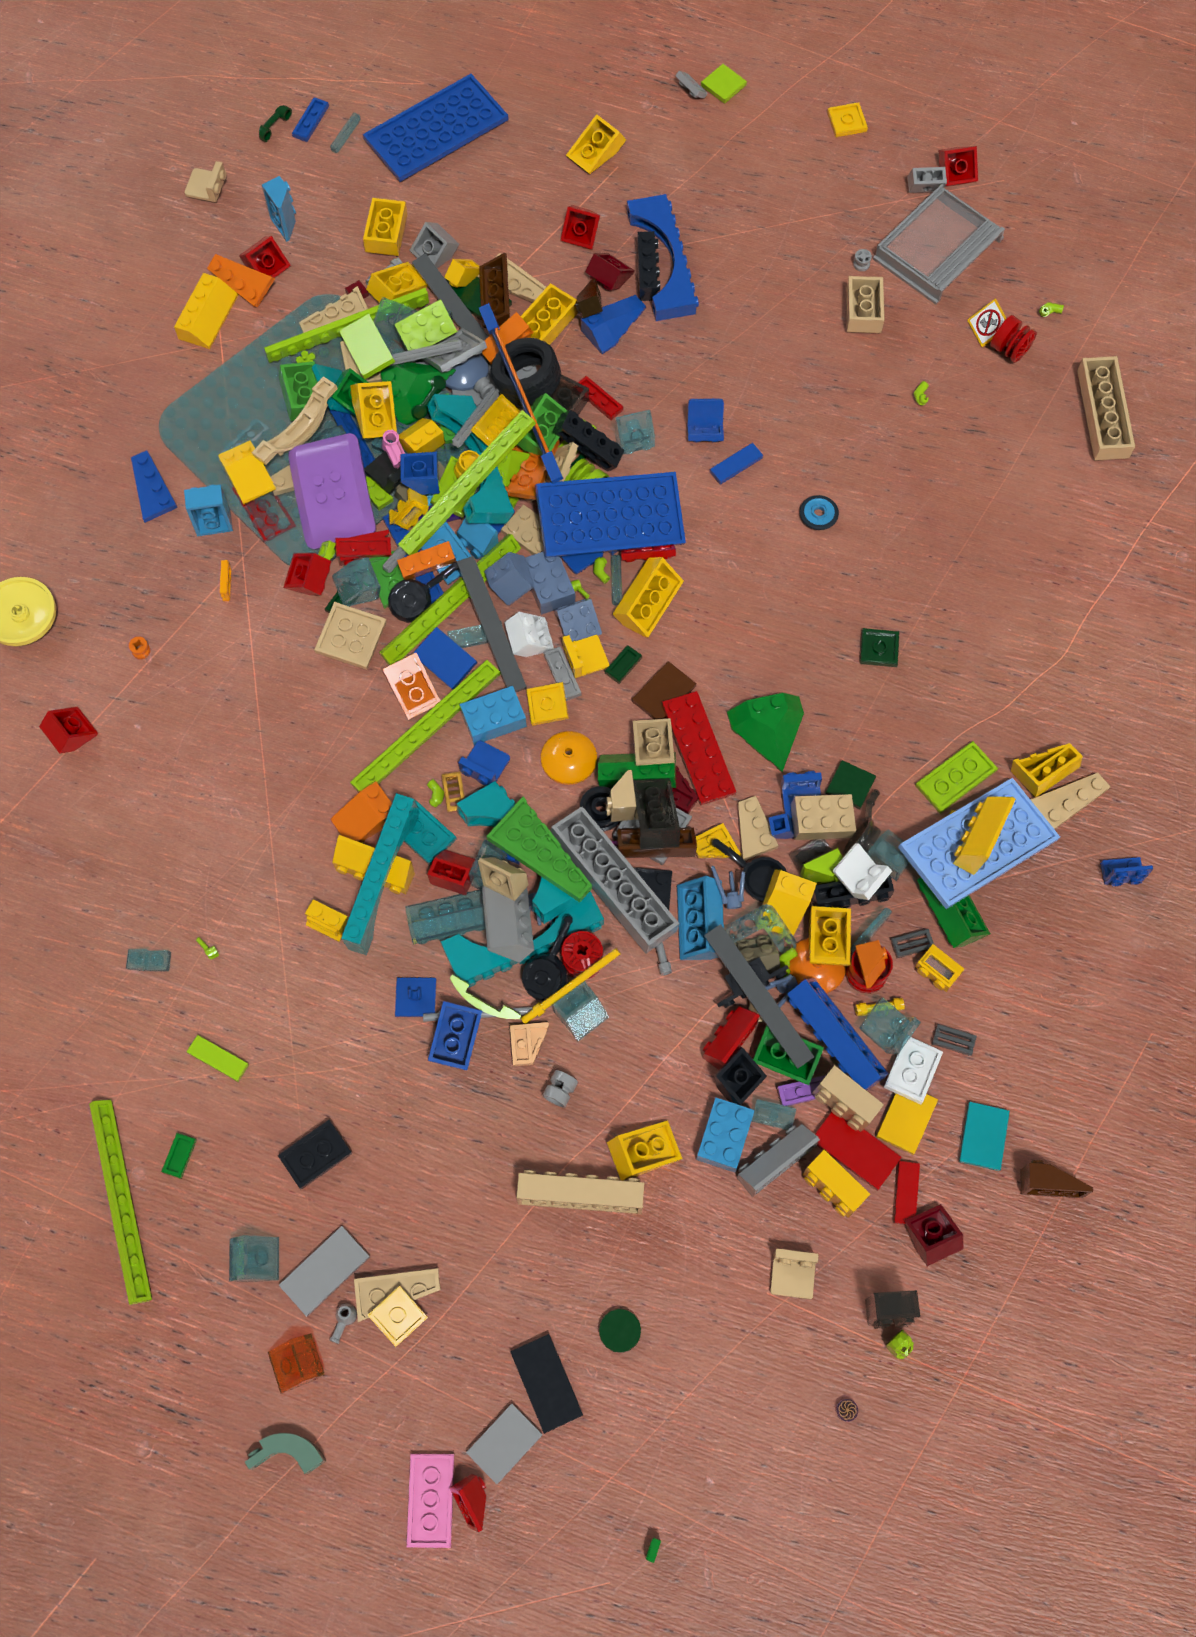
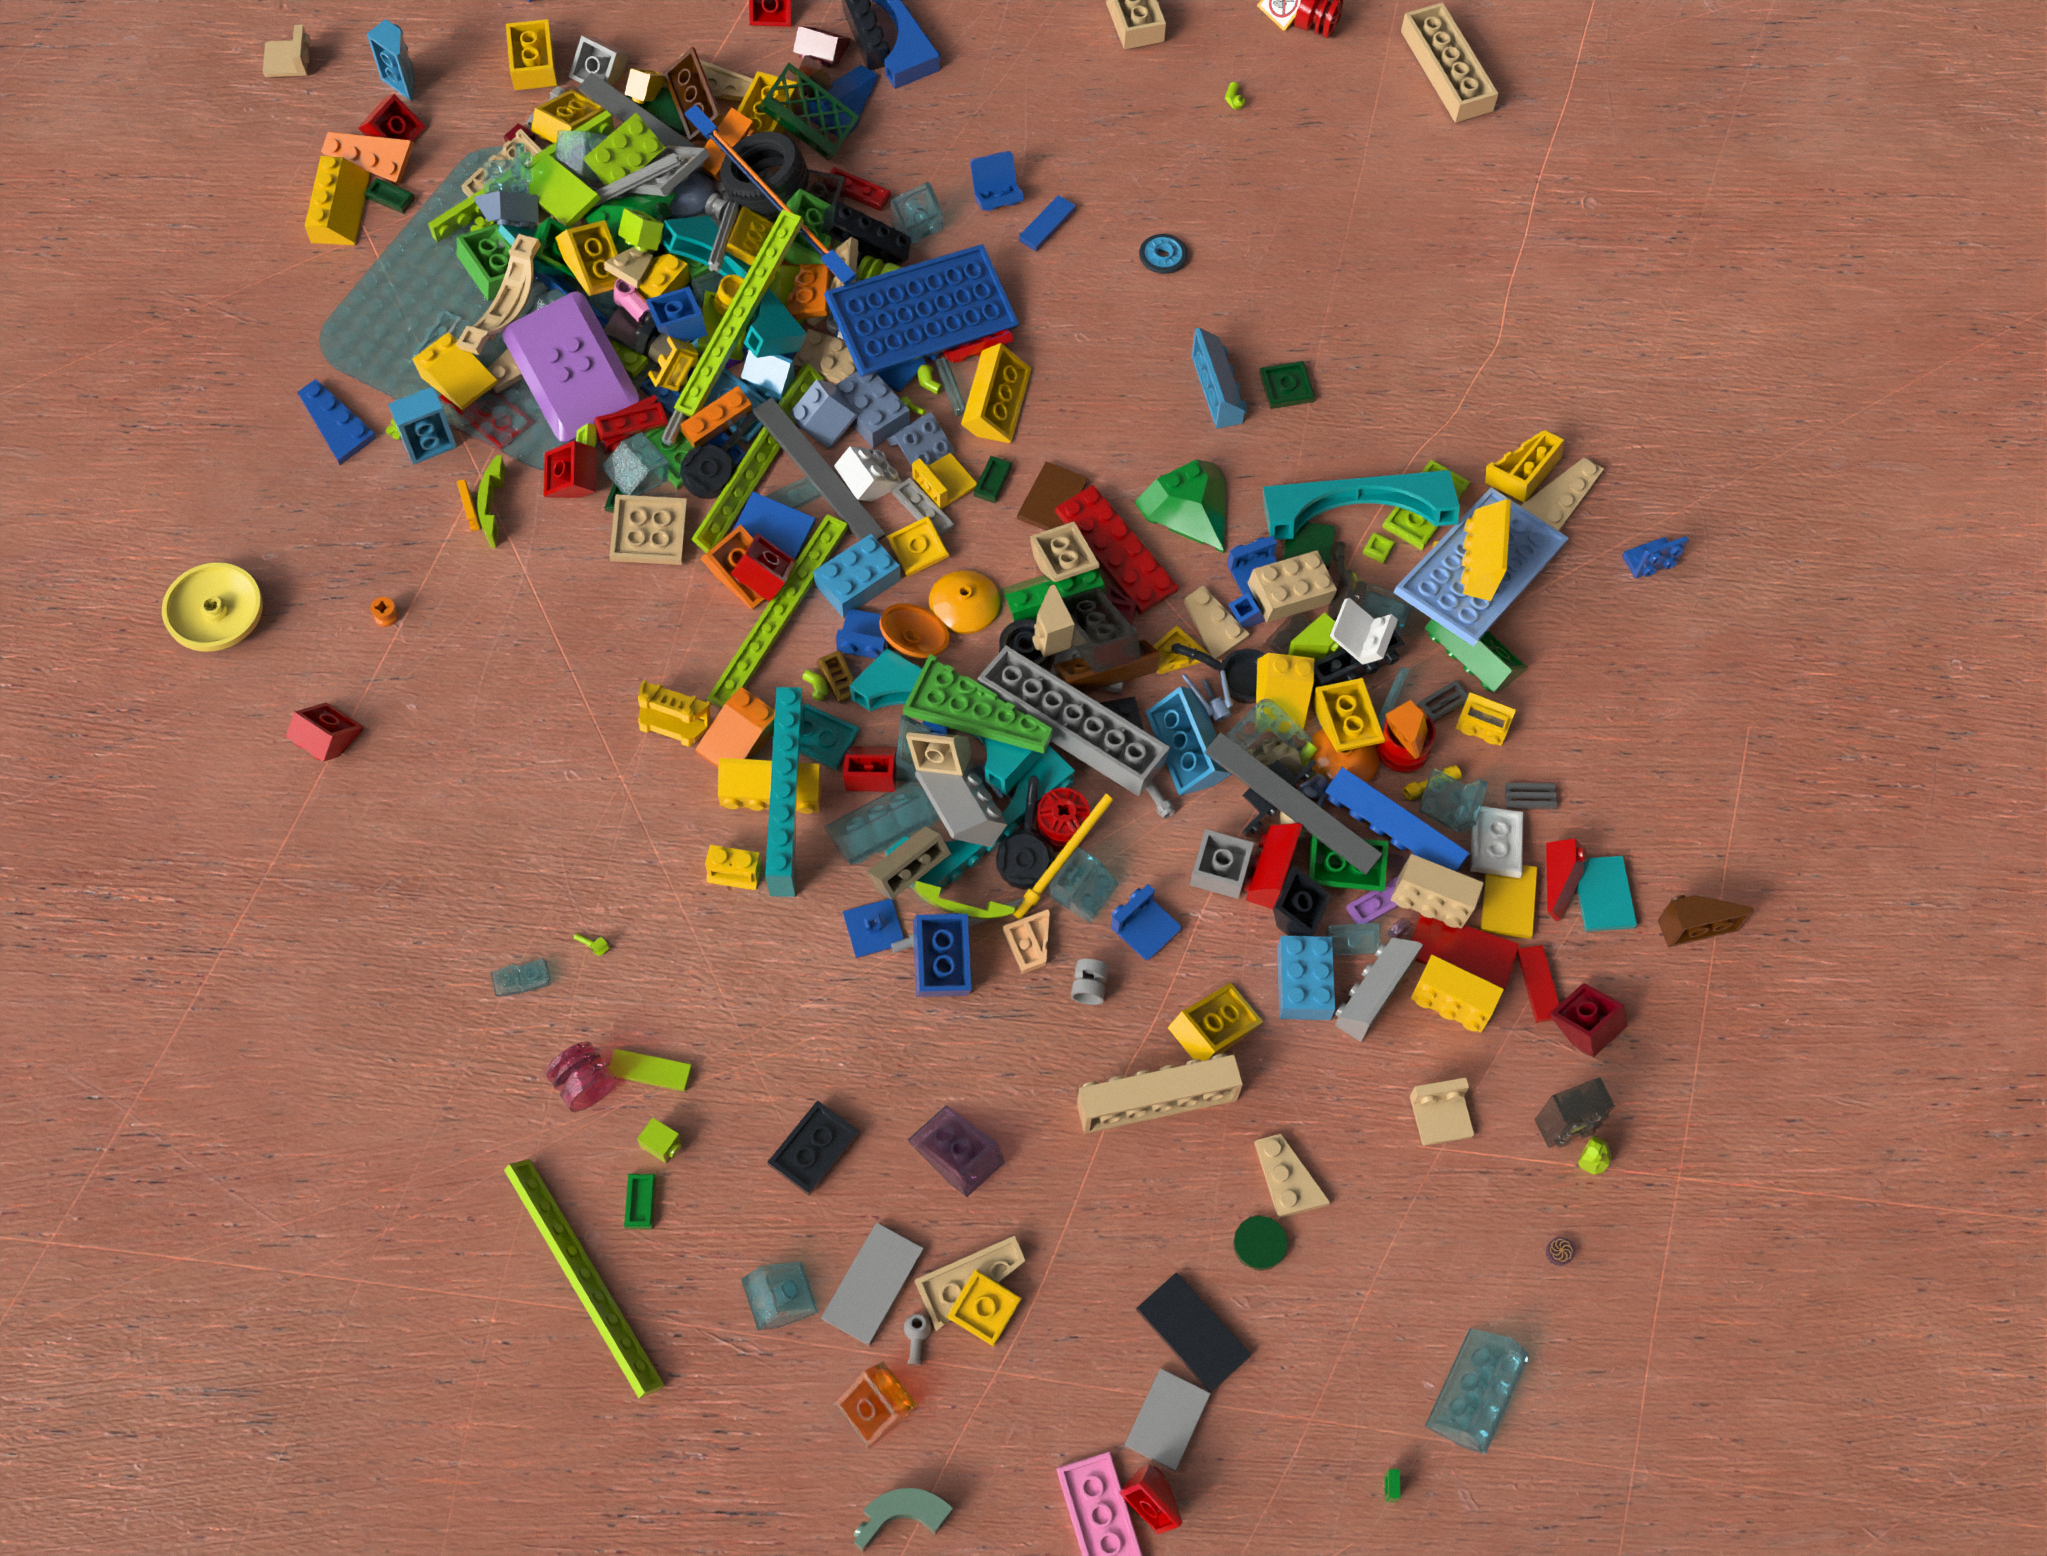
camera: 20 degrees left, 5 degrees down
(164, 1050) = (580, 1076): none -> clear pink wheel
(206, 1115) = (660, 1140): none -> lime brick
(246, 315) = (389, 195): none -> dark green tile
(250, 562) = (492, 478): none -> lime slope
(320, 787) = (672, 713): none -> yellow piece
(326, 351) = (509, 208): none -> sand blue slope
(333, 325) = (509, 174): none -> clear light blue bracket
(400, 421) = (630, 266): none -> tan wing
(415, 396) = (640, 230): none -> lime brick
(418, 1189) = (957, 1150): none -> clear purple slope
(423, 690) = (763, 567): none -> red slope
(452, 957) = (908, 862): none -> dark tan brick
(520, 772) = (914, 630): none -> orange dish
(565, 335) = (801, 128): none -> dark green fence
(617, 1055) = (1144, 923): none -> blue bracket
(658, 1289) = (1287, 1178): none -> tan wing
(691, 1025) = (1221, 863): none -> light grey brick
(744, 1498) = (1478, 1390): none -> clear light blue slope
(812, 1118) = (1400, 928): none -> tile
(825, 630) = (1217, 379): none -> dark azure slope
(905, 802) = (1378, 547): none -> lime tile
(953, 769) = (1424, 493): none -> teal arch
(956, 1111) = (1564, 869): none -> red slope

